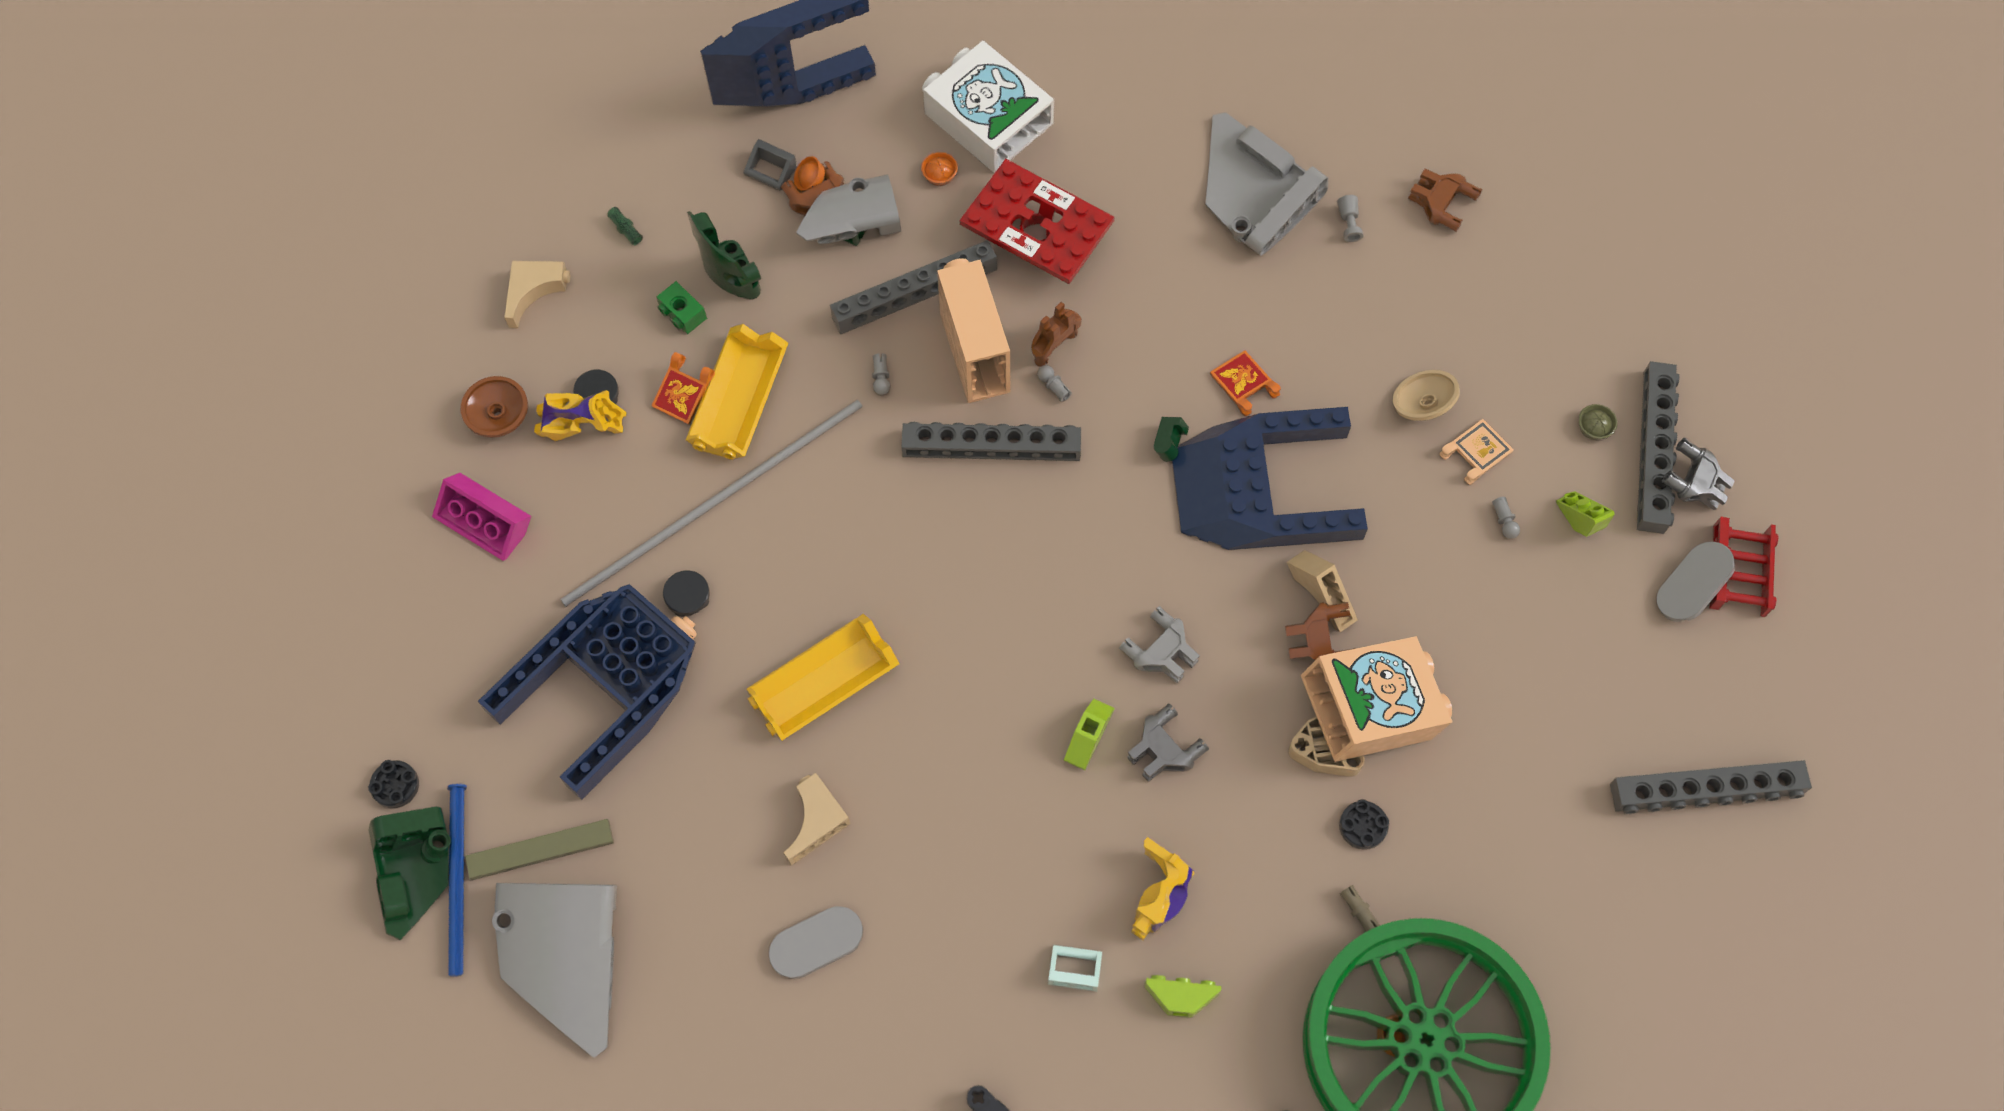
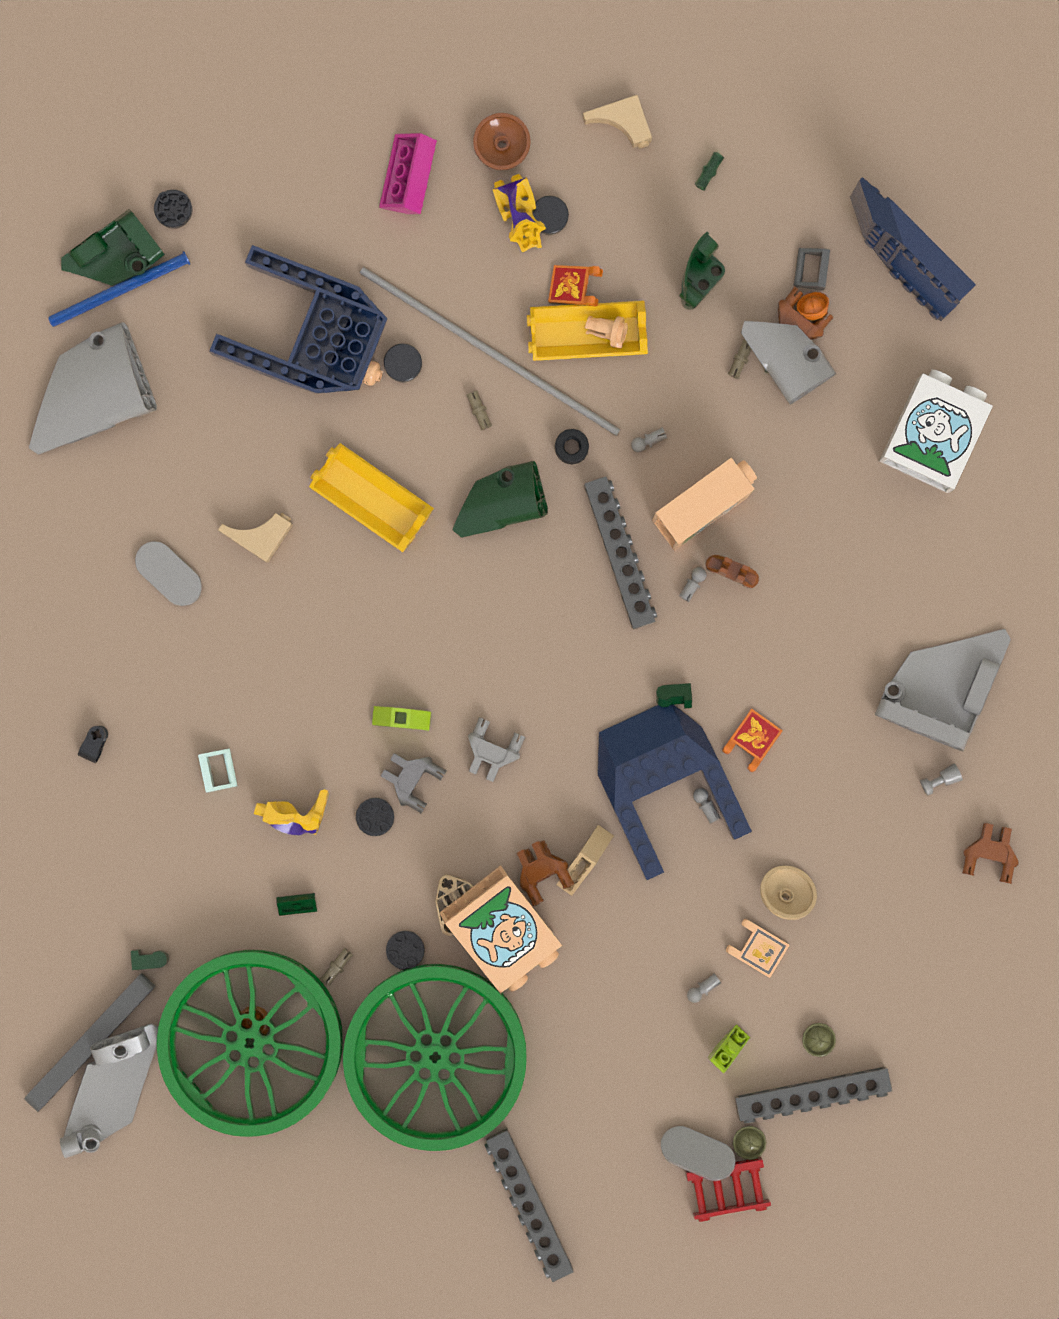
camera: 65 degrees right, 20 degrees up
(539, 849) = (163, 340): olive tile -> none
(677, 297) = (656, 243): green brick -> none
(745, 370) = (608, 329): none -> light nougat piece
(774, 532) = (479, 410): none -> dark tan pin
(833, 261) = (740, 360): none -> dark tan pin
(855, 438) = (567, 435): none -> black tyre
(887, 542) = (502, 501): none -> dark green panel
(903, 290) = (738, 436): dark grey brick -> none
(939, 168) = (863, 413): orange hat -> none
(1066, 241) = (840, 483): red plate -> none
(1181, 996) = (223, 855): lime slope -> none
(1194, 804) = (375, 817): none -> black tile
(1269, 929) = (296, 904): none -> dark green plate
(1290, 450) = (701, 796): none -> light grey pin
(1535, 738) = (355, 1058): none -> green wheel
(1695, 528) = (749, 1142): none -> olive hat
(1704, 479) = (793, 1135): flat silver connector -> none

